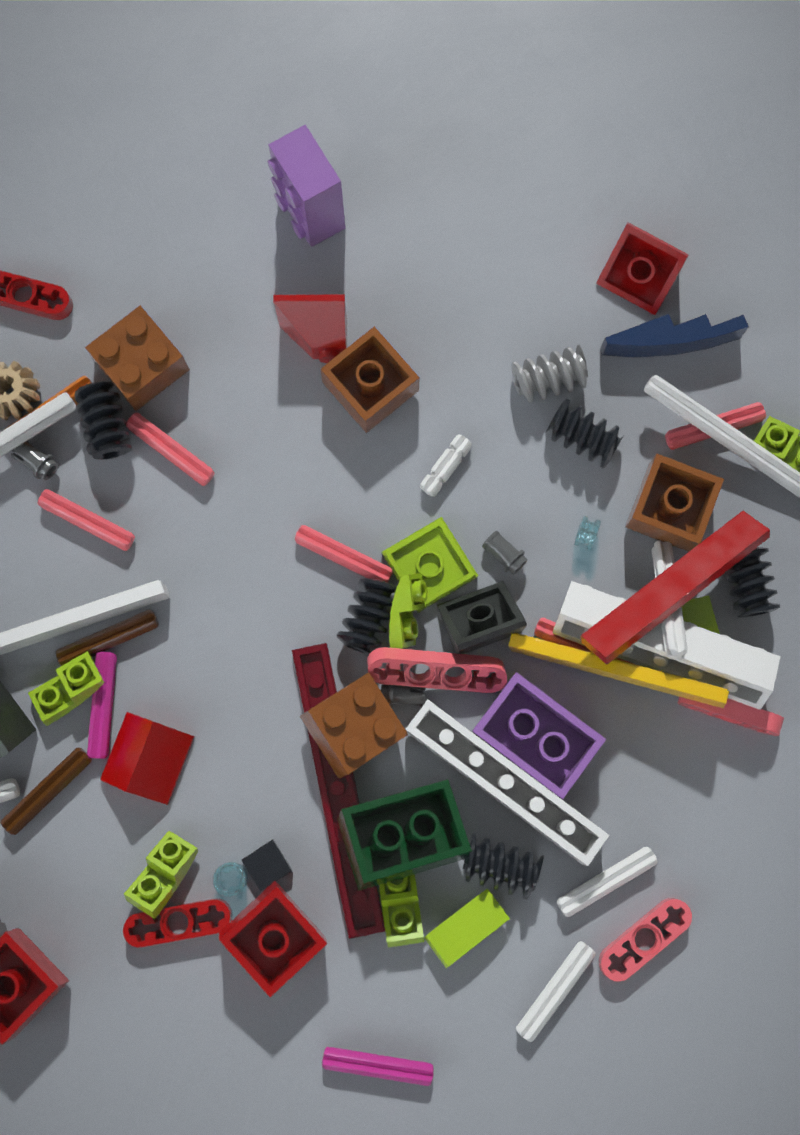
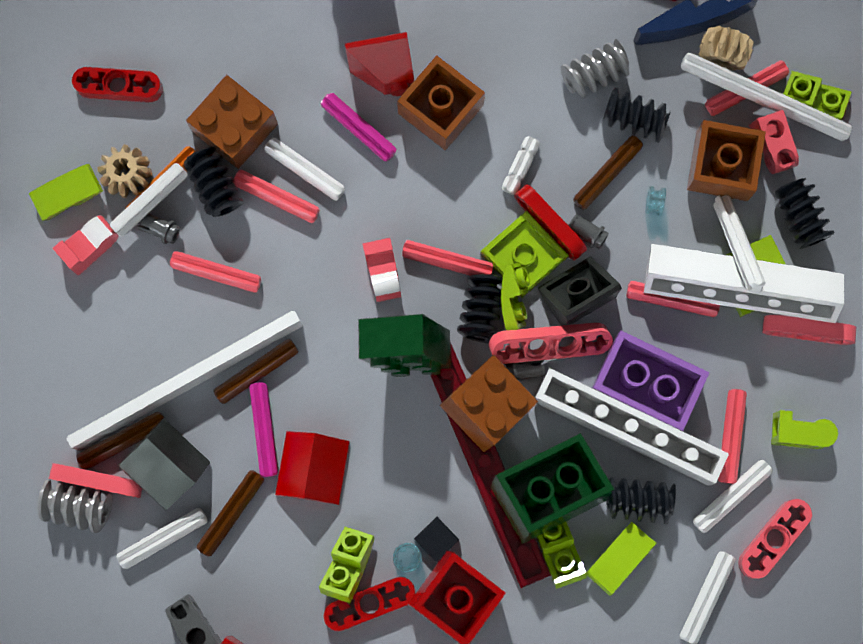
camera: 10 degrees left, 0 degrees up
(69, 689) = (231, 422): lime slope -> none
(207, 424) = (304, 169): none -> white axle
(268, 552) = (382, 269): none -> coral leg
(270, 643) = (404, 344): none -> dark green brick
(276, 389) = (358, 127): none -> dark pink axle
(465, 535) = (550, 221): none -> red beam
(541, 491) = (608, 172): none -> reddish brown axle
(619, 670) = (708, 312): yellow tile -> none
(620, 813) = (733, 434): none -> coral axle
(674, 587) = (742, 231): red tile -> none
(695, 826) = (801, 433): none -> lime leg
(699, 377) = (726, 47): none -> tan gear
(736, 490) = (779, 146): none -> coral leg

